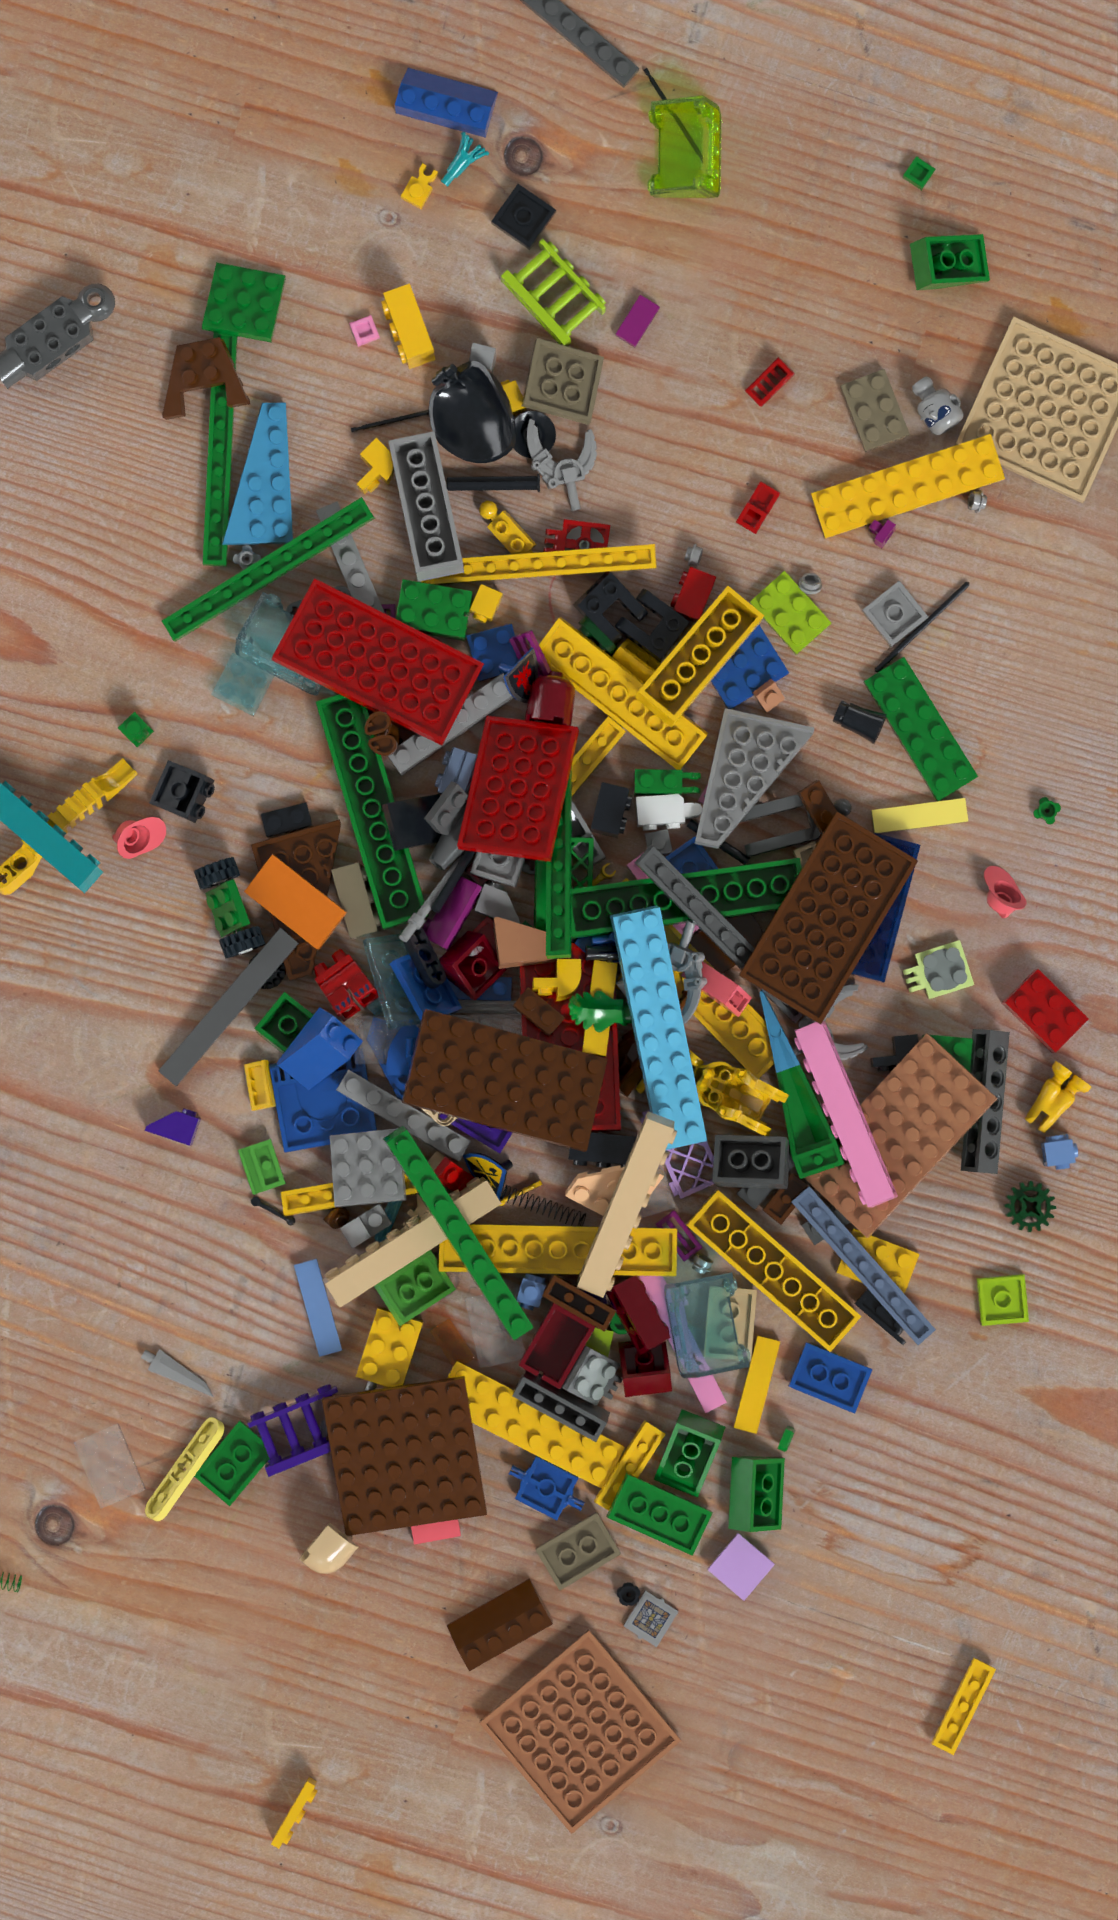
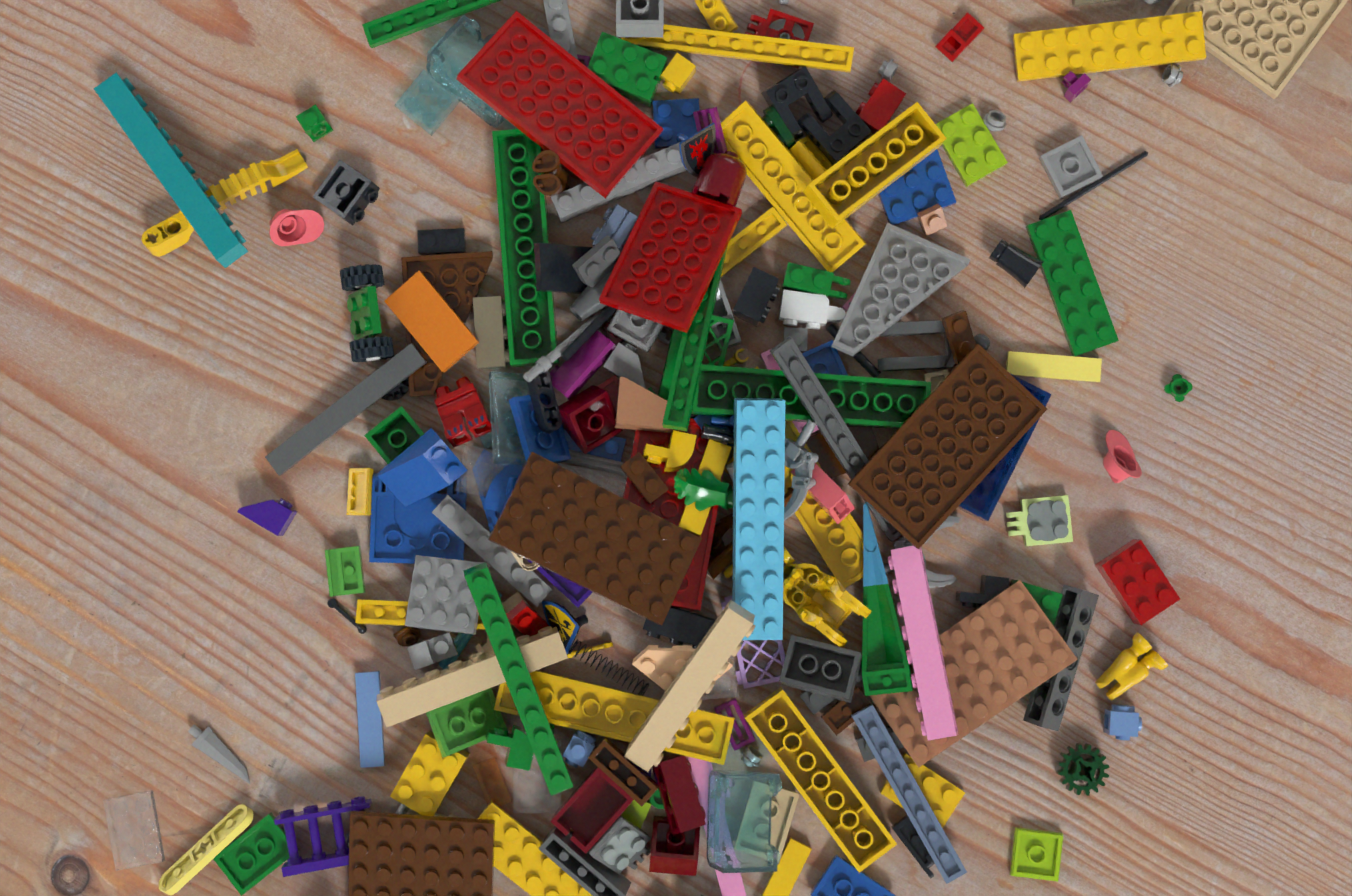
camera: 15 degrees right, 0 degrees up
(473, 1302) = (519, 750): none -> green brick

